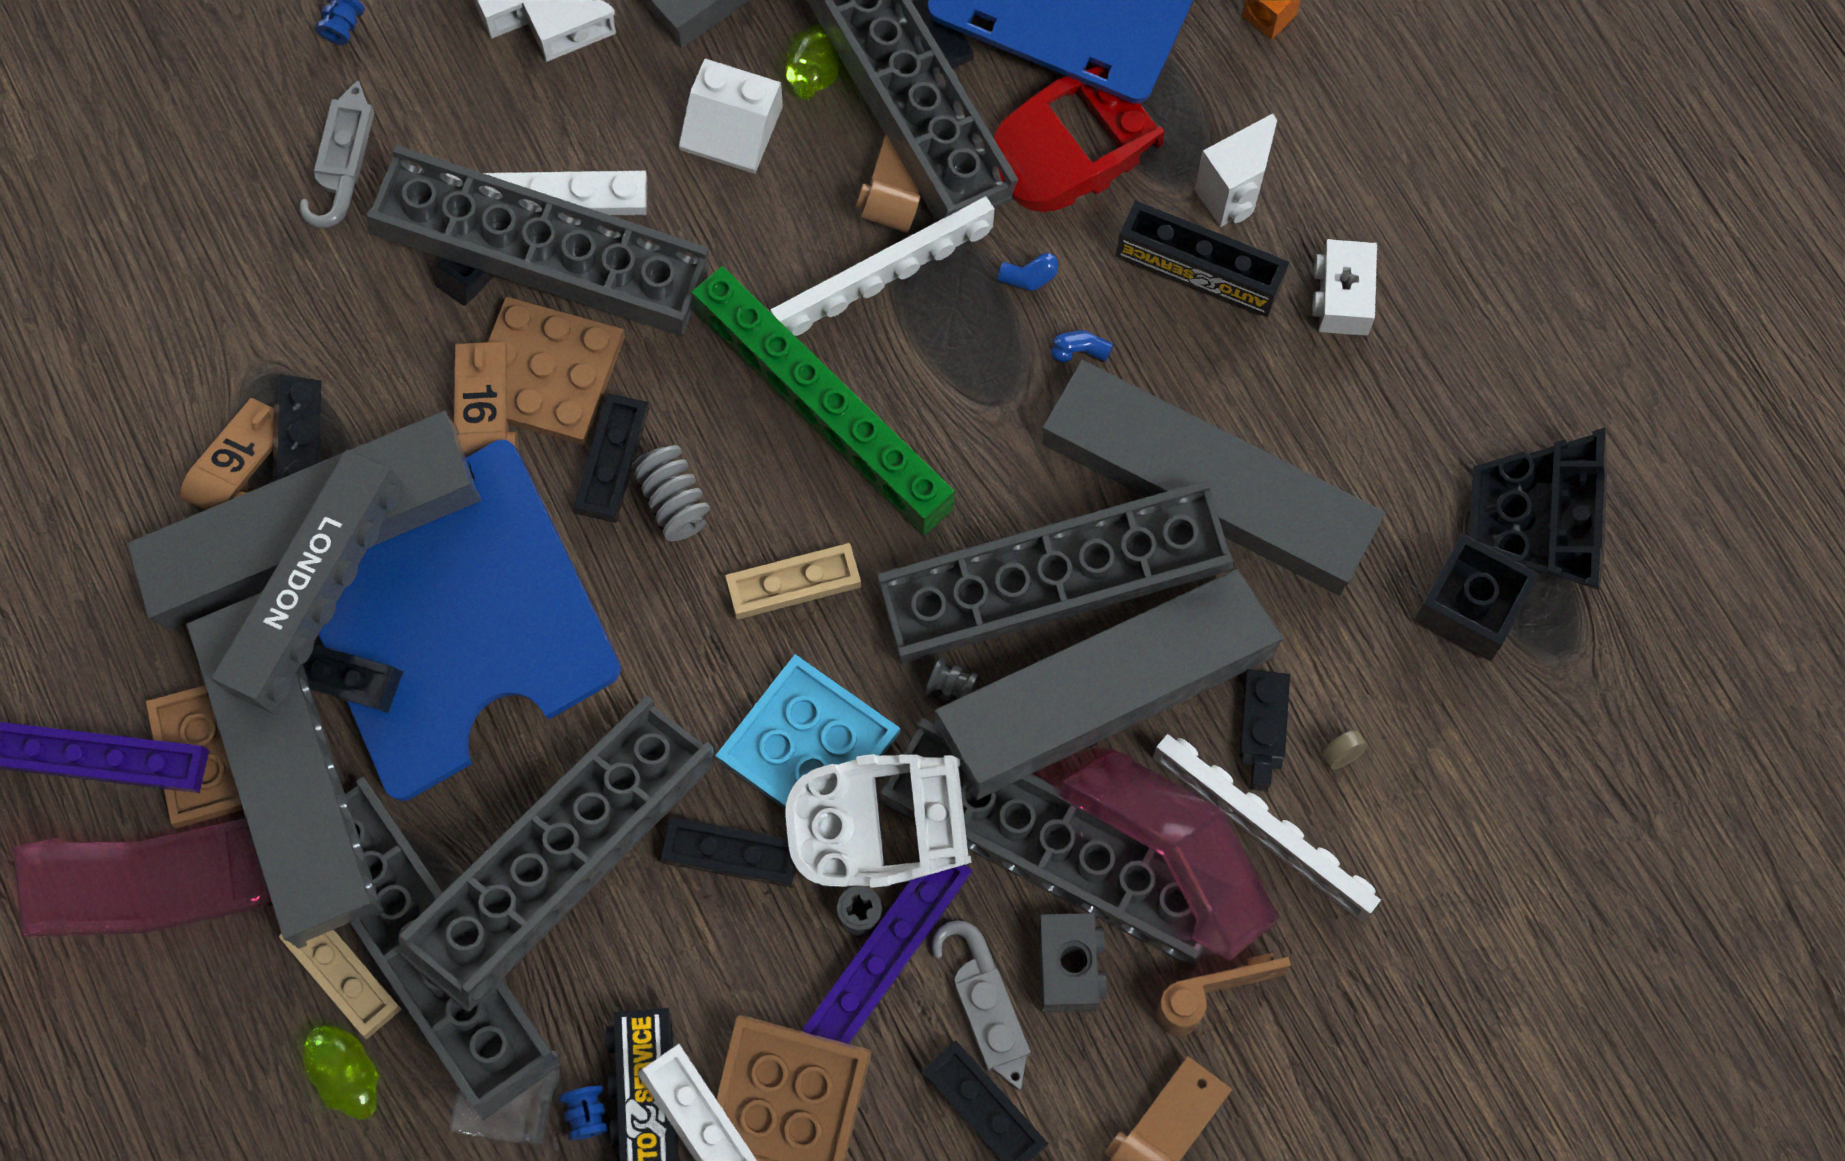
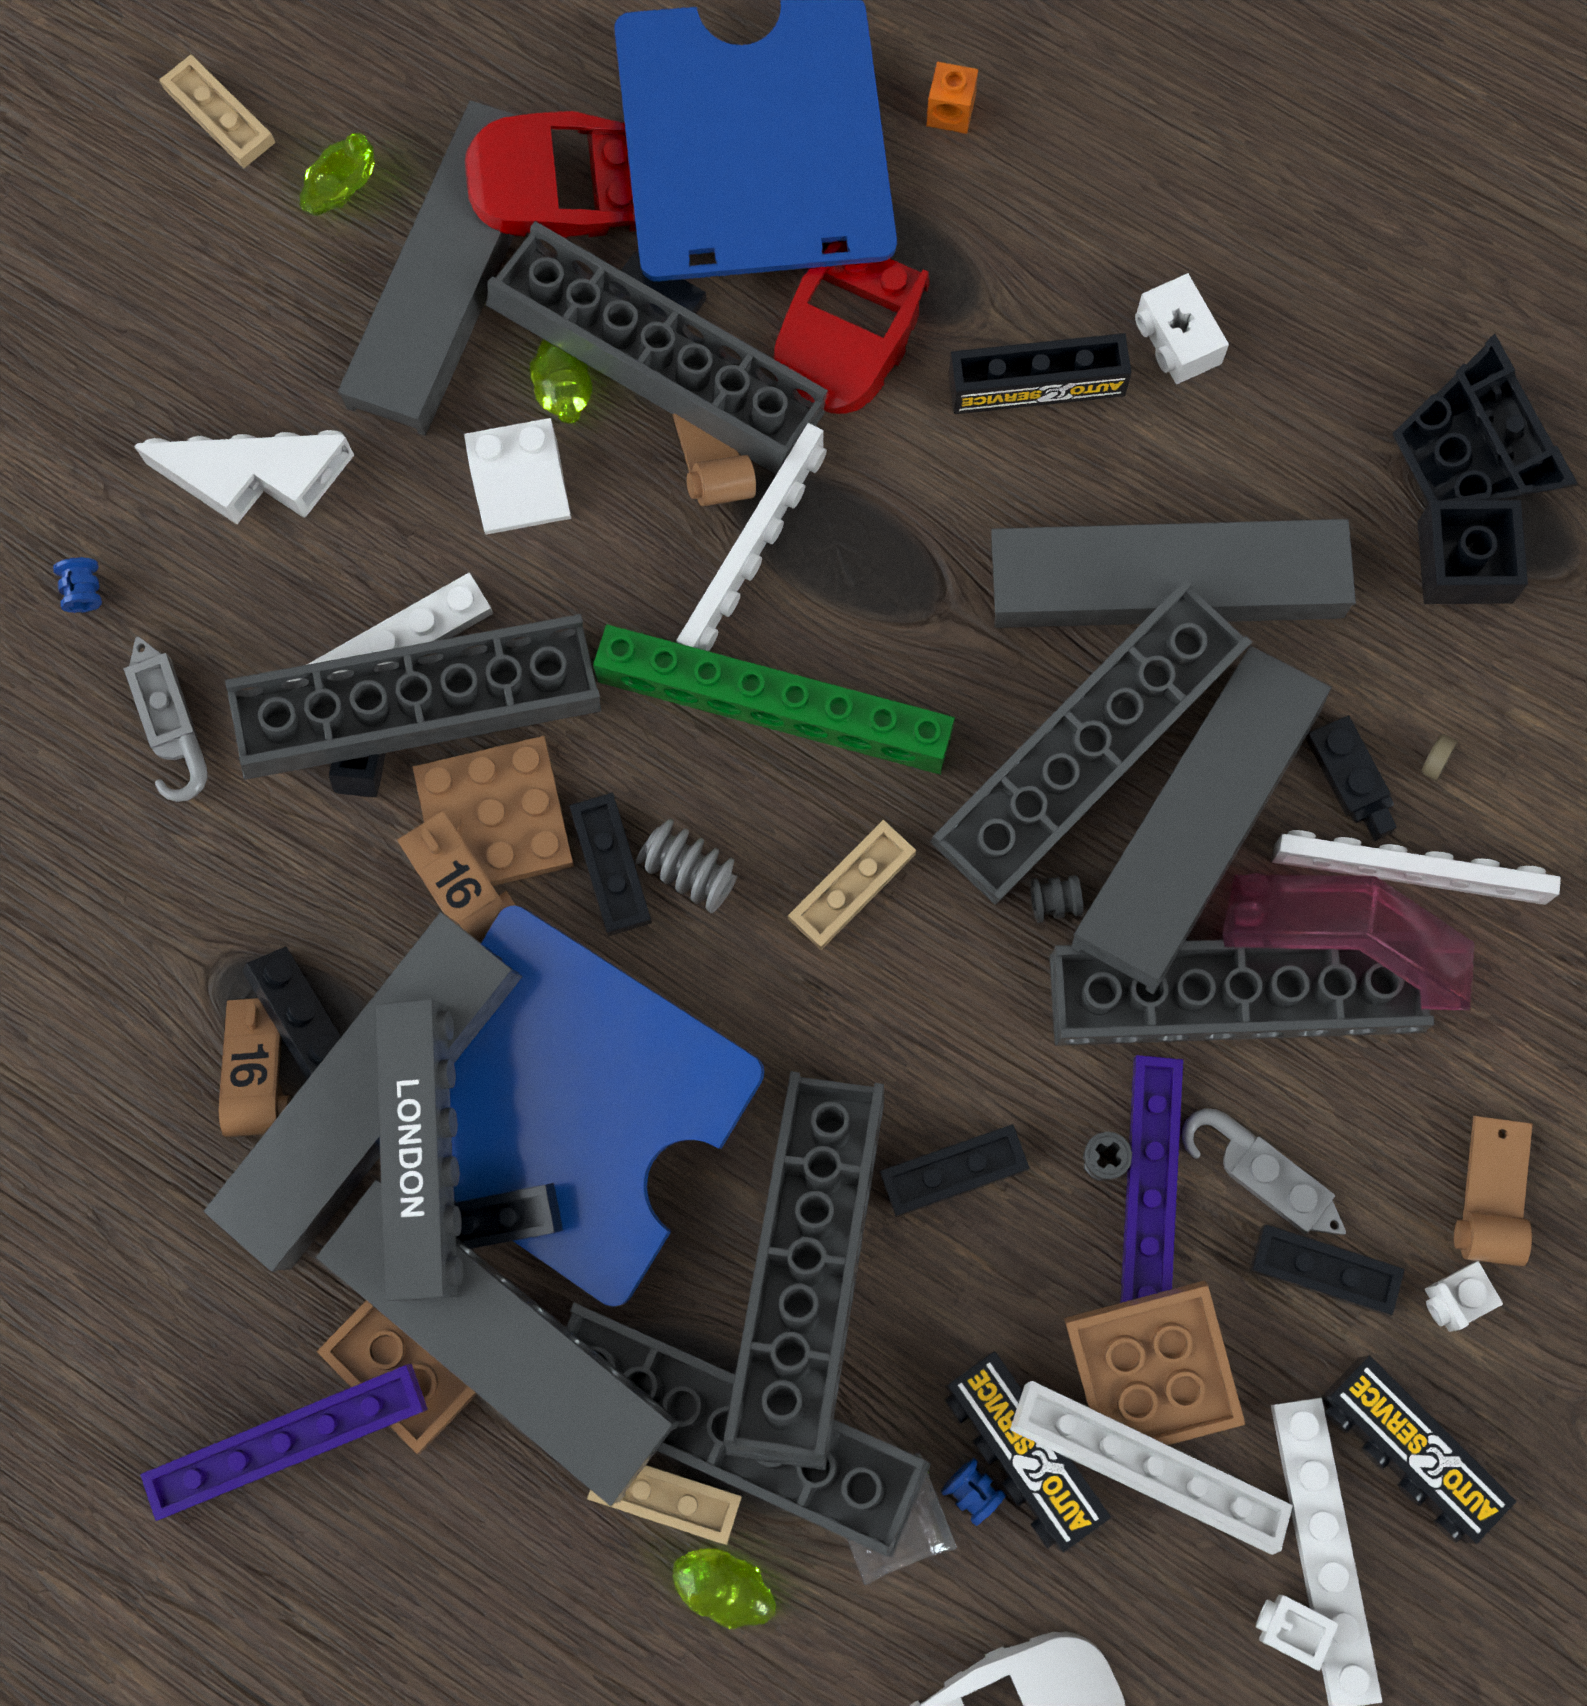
camera: 25 degrees left, 5 degrees up
(138, 884) = (423, 1526): clear pink windscreen -> none
(801, 727) = (961, 1029): medium azure plate -> none
(837, 824) = (1041, 1093): white slope -> none
(1032, 275) = (890, 474): blue arm -> none
(1059, 988) = (1321, 1121): dark grey brick -> none
(1079, 341) = (971, 513): blue arm -> none
(1185, 1001) = (1447, 1069): medium nougat door -> none
(1234, 171) = (1023, 275): white slope -> none

